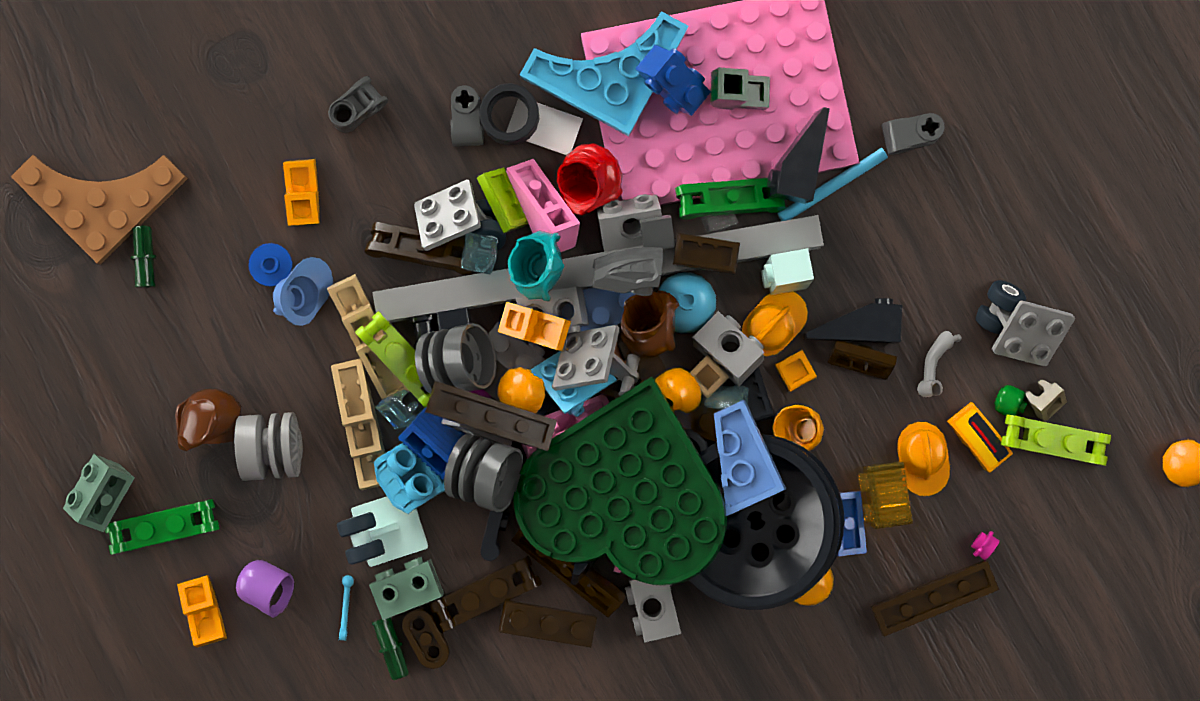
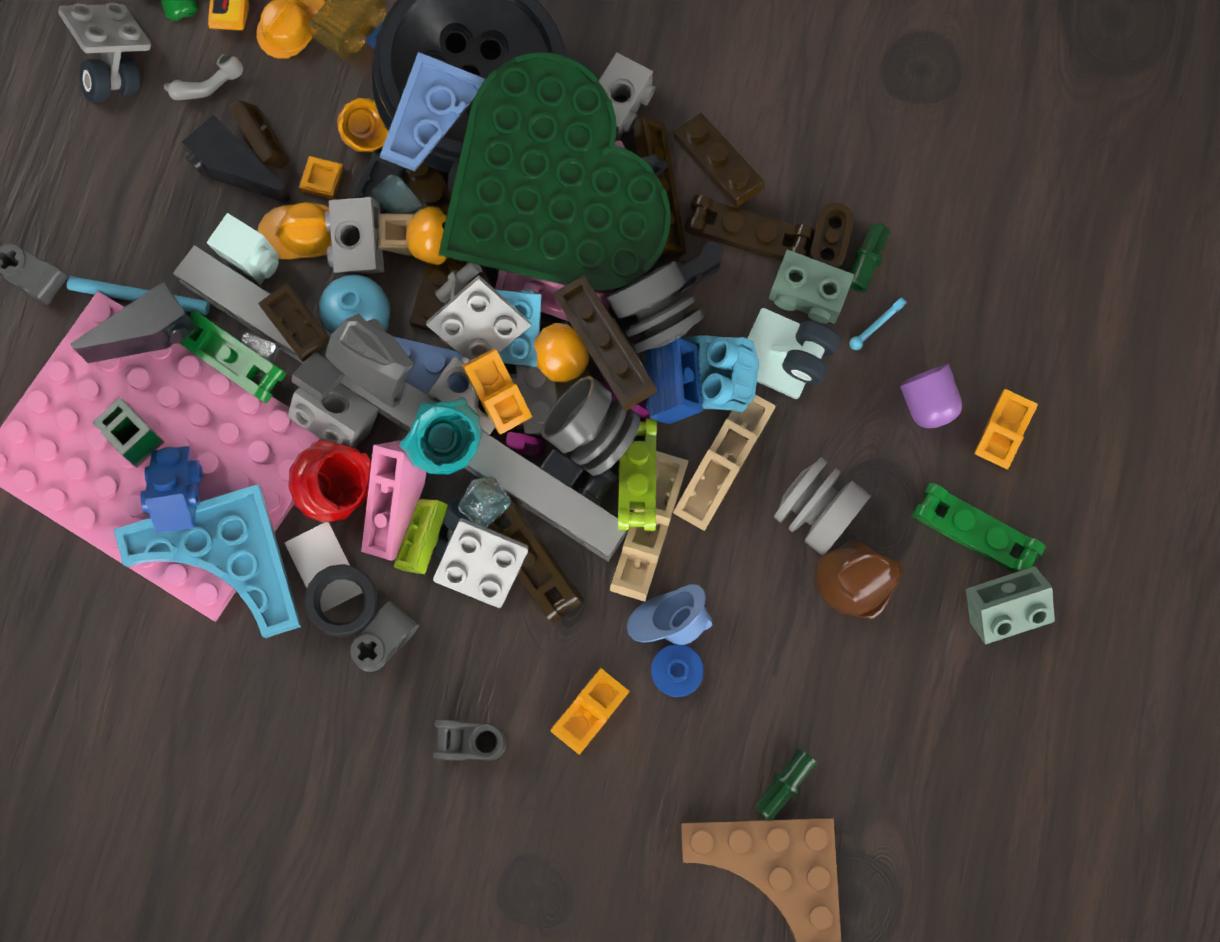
camera: 135 degrees left, 10 degrees down
(395, 411) = (684, 440): clear light blue tile -> none
(493, 317) = (525, 444): none -> magenta tile
(649, 323) = (400, 304): reddish brown helmet -> none

